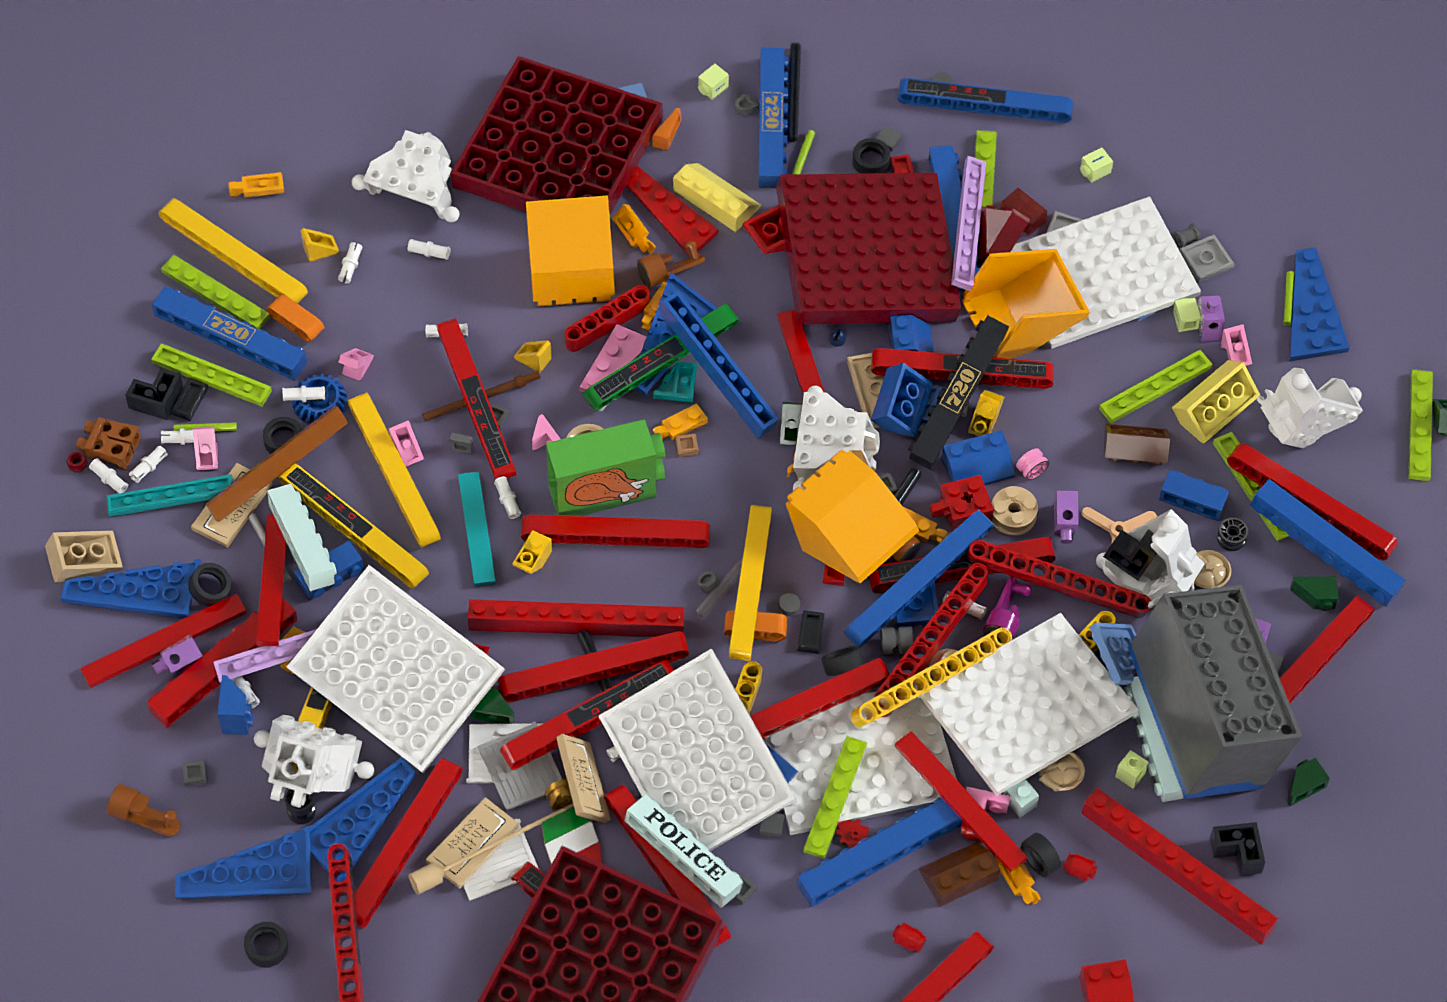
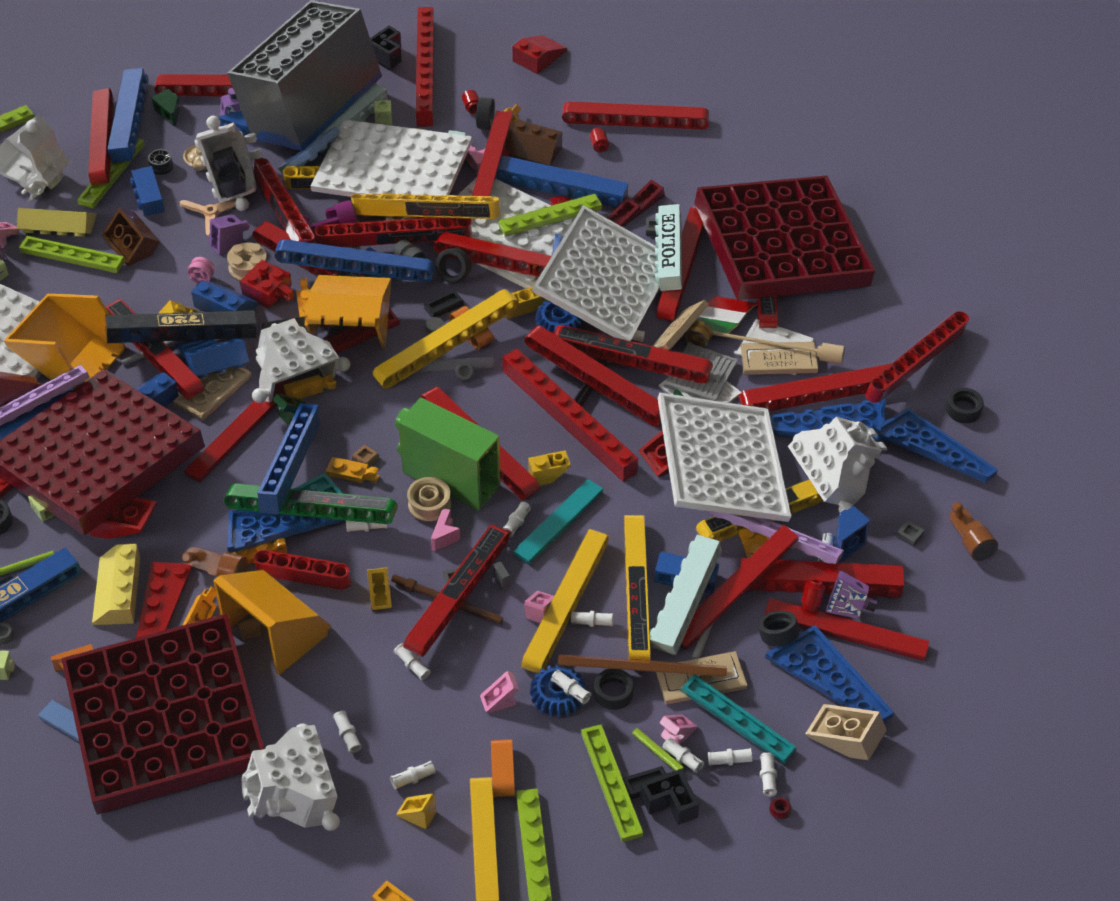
camera: 130 degrees left, 10 degrees down
(110, 441) = (742, 797): dark orange hips -> none
(205, 627) = (813, 595): none -> red brick
(230, 333) = (563, 803): blue brick -> none
(358, 474) = (592, 618): none -> white pin
(618, 351) = (336, 544): bright pink wing -> none
(786, 896) = (631, 208): none -> dark red slope

